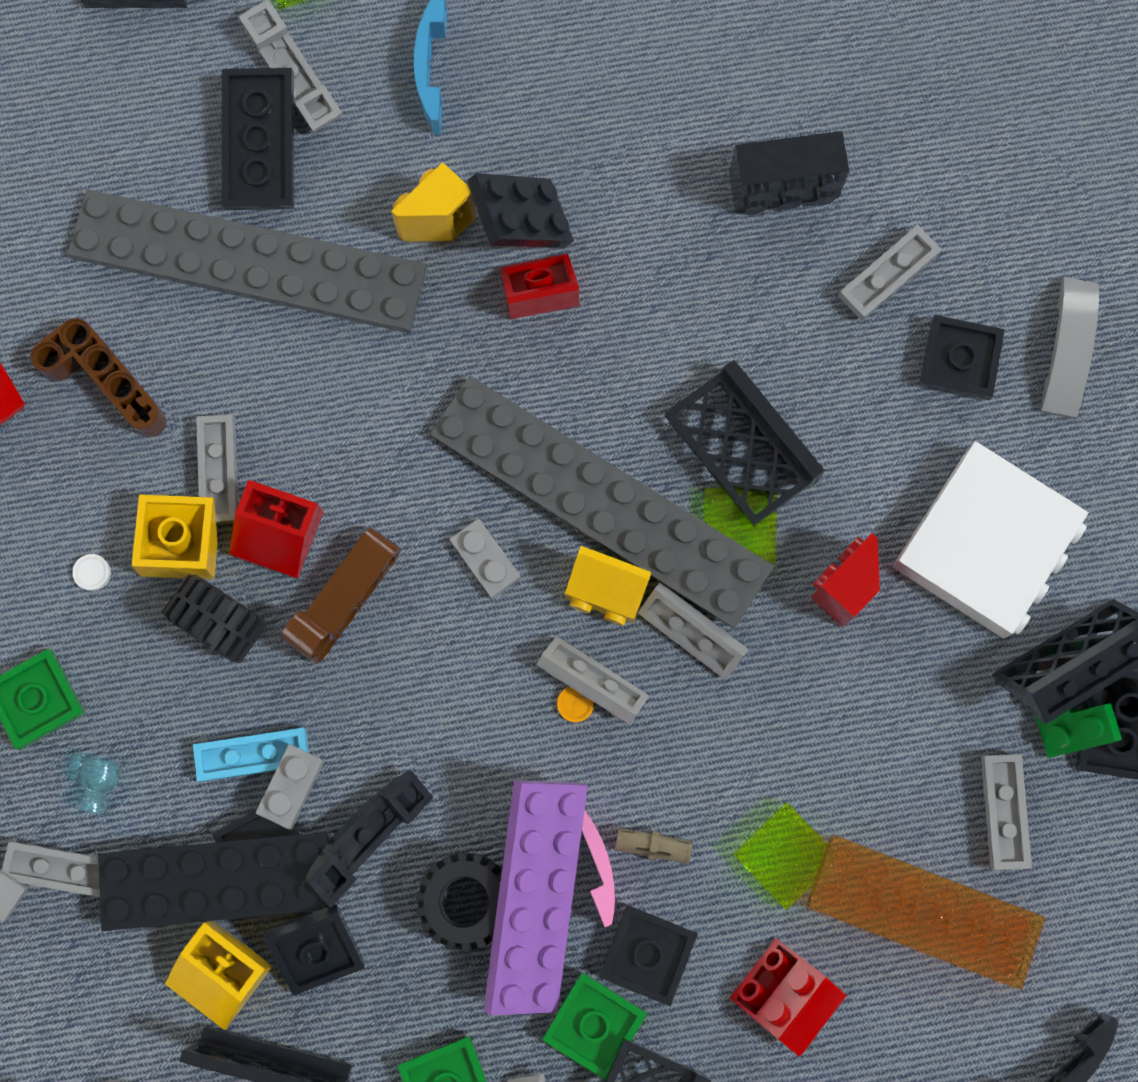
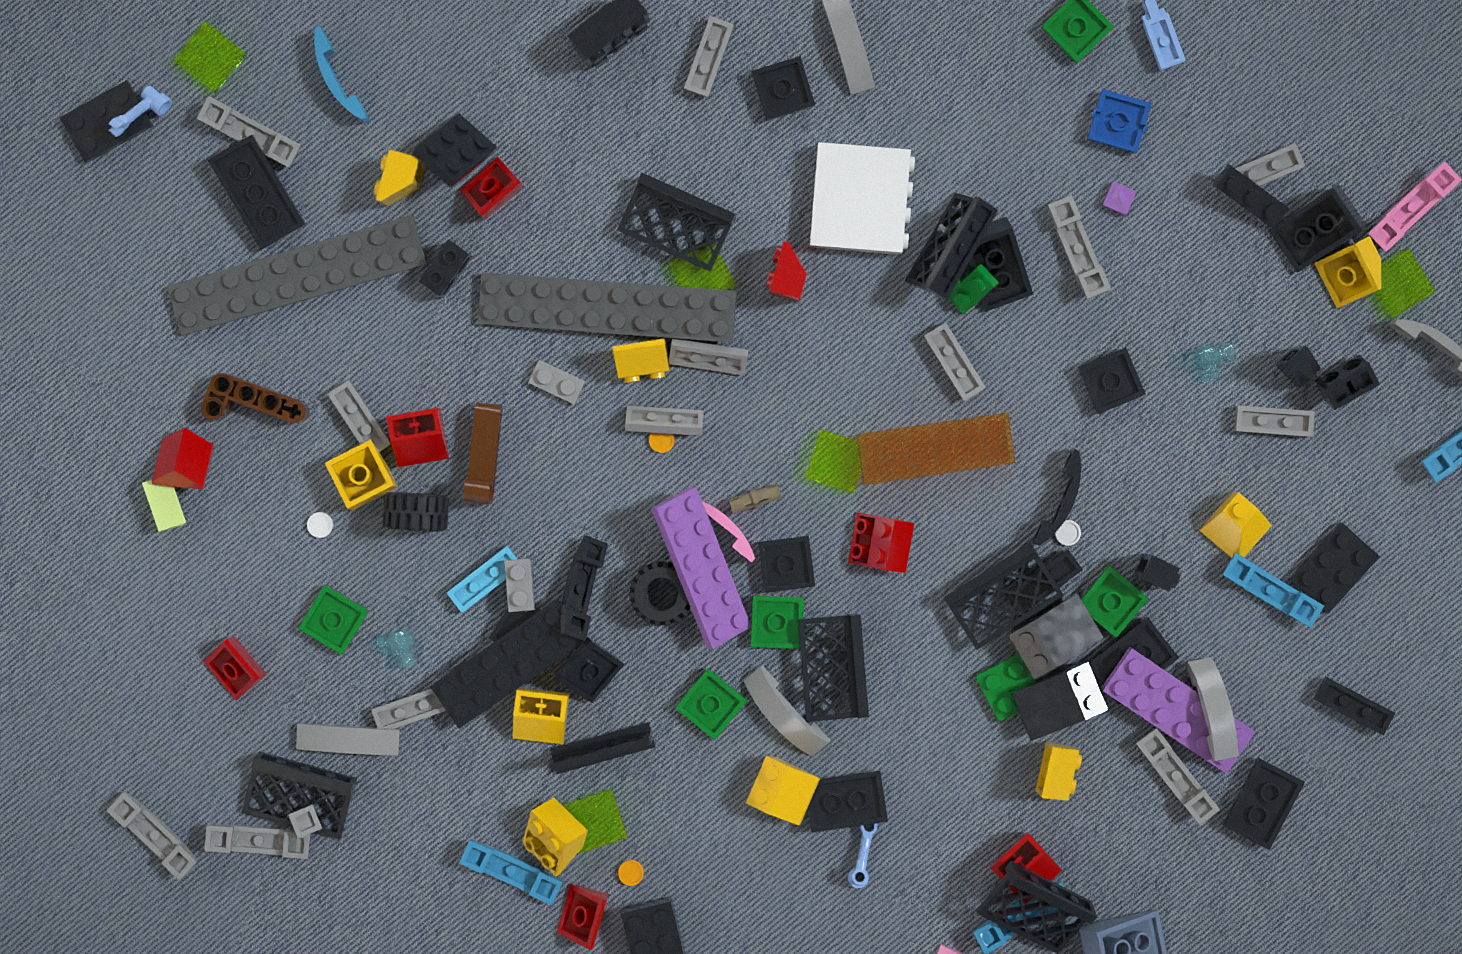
camera: 25 degrees left, 10 degrees up
(428, 346) = (445, 268): none -> black brick

